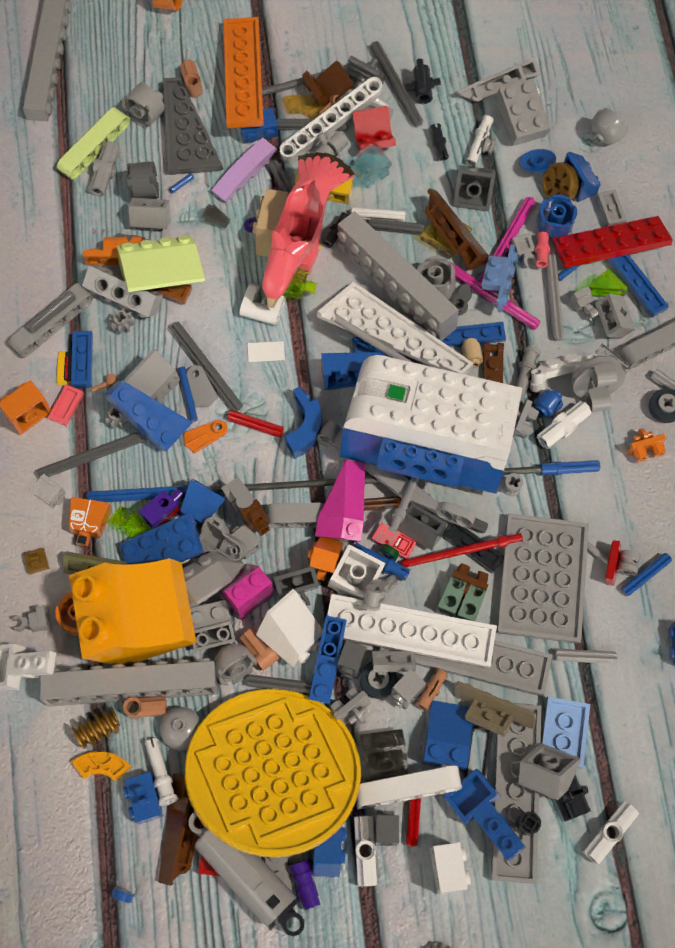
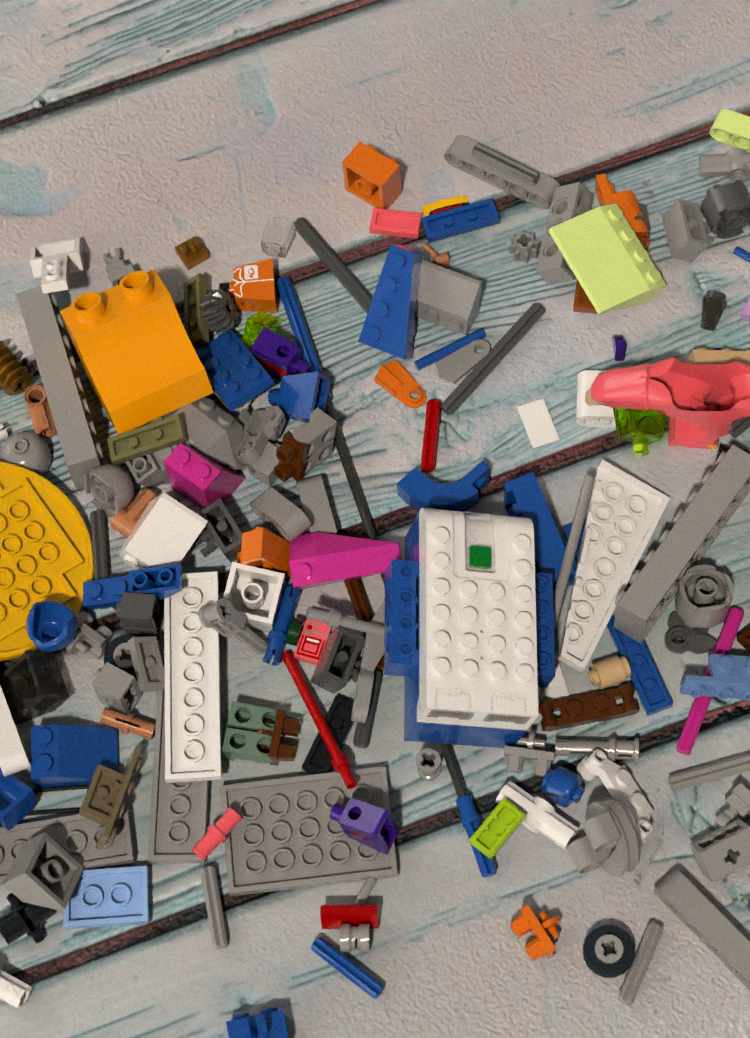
camera: 85 degrees right, 5 degrees down
(103, 547) = (219, 311): none -> dark grey gear
(208, 620) = (147, 439): none -> olive plate
(225, 282) = (619, 347): none -> dark purple tile
(294, 539) = (280, 514): none -> light grey beam
(348, 726) = (53, 620): none -> blue piece
(537, 639) = (216, 834): none -> coral pin
(561, 526) = (366, 824): none -> dark purple torso
(573, 449) = (497, 828): none -> lime plate

